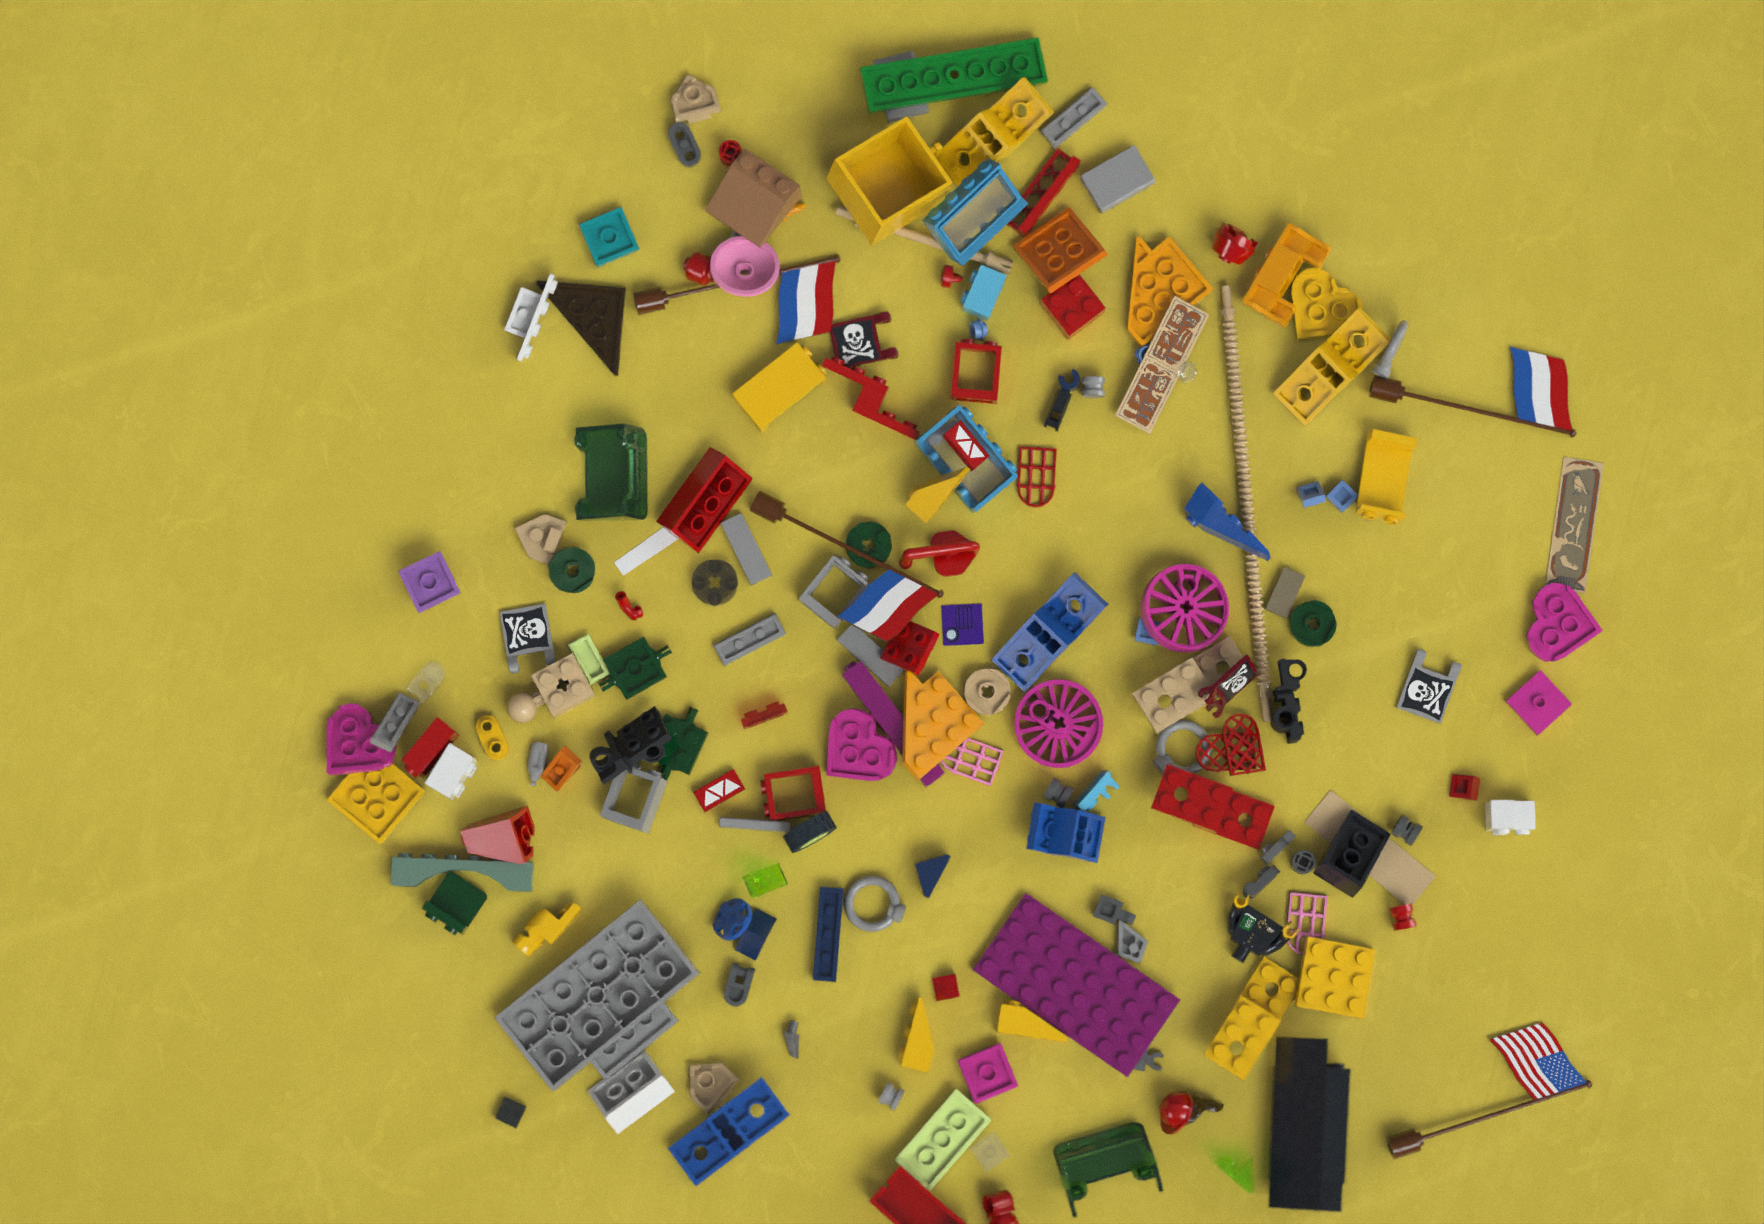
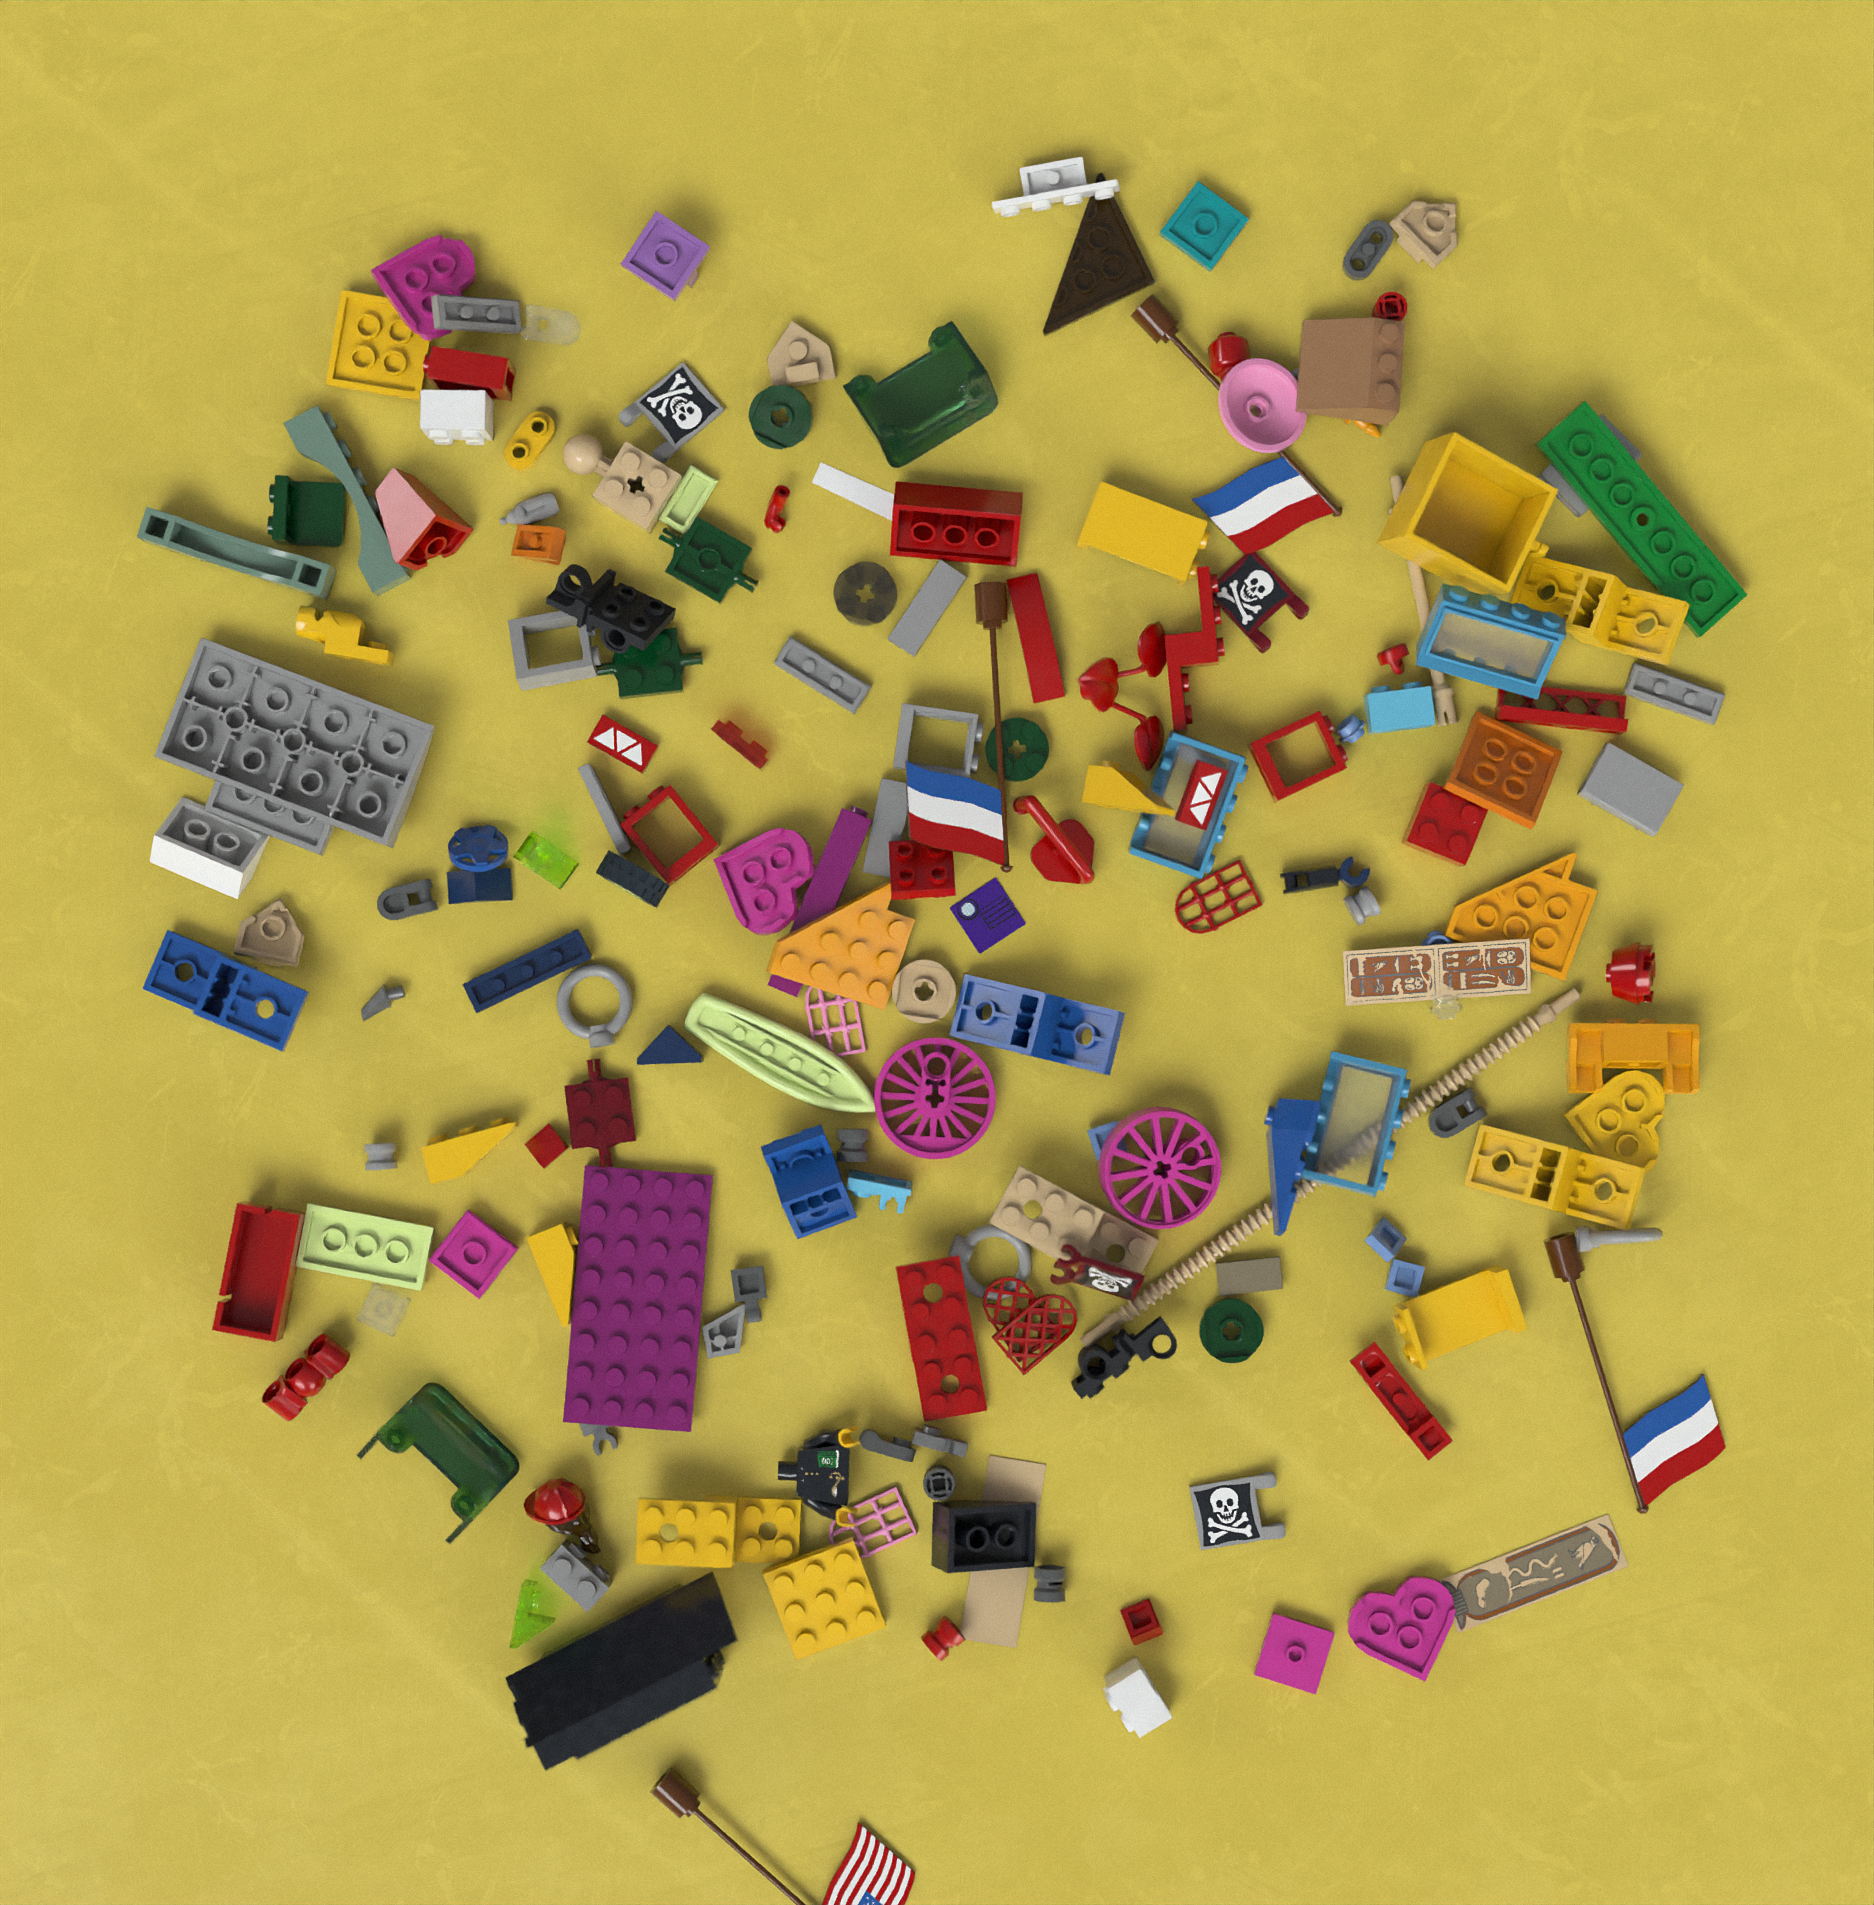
camera: 60 degrees right, 5 degrees up
(455, 963) = (236, 553): none -> sand green arch
(510, 1112) = (104, 722): pearl dark grey tile -> none
(805, 492) = (1035, 638): none -> red slope
(860, 466) = (1101, 687): none -> red plant
(944, 941) = (599, 1113): none -> dark red plate
(974, 806) = (778, 1055): none -> yellowish green piece
(1228, 469) = (1356, 1124): none -> clear window
(1230, 1125) = (577, 1574): none -> light grey brick
(1258, 413) = (1445, 1120): none -> dark grey plate
(1417, 544) = (1400, 1401): none -> red slope

